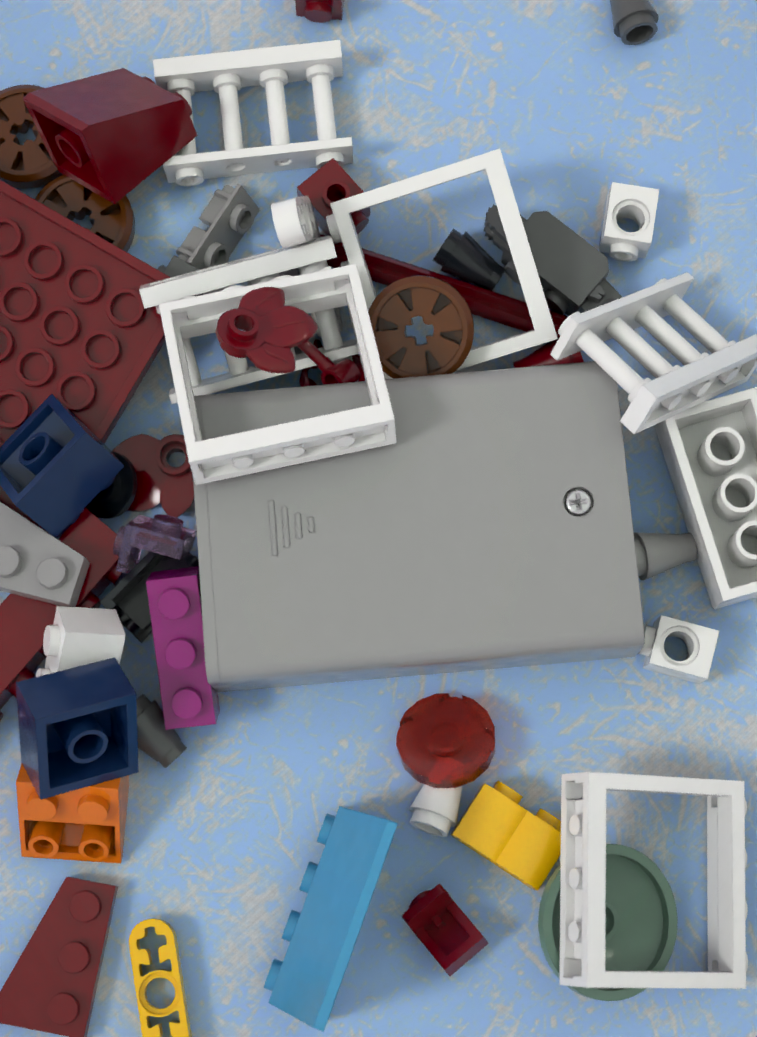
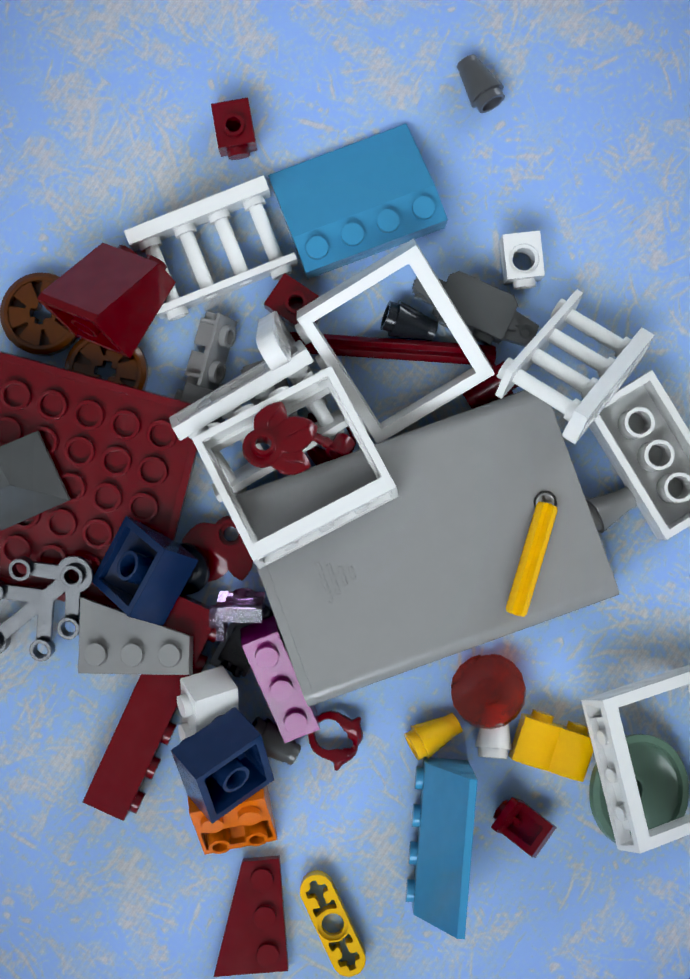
camera: 20 degrees left, 10 degrees up
(230, 773) = (354, 732): none -> dark red piece
(358, 779) = (432, 735): none -> yellow cone
(439, 306) = (400, 376): reddish brown wheel -> none
(446, 104) = (358, 201): none -> dark azure slope
(542, 564) = (531, 559): none -> yellow axle
(700, 649) = (656, 578): white brick -> none

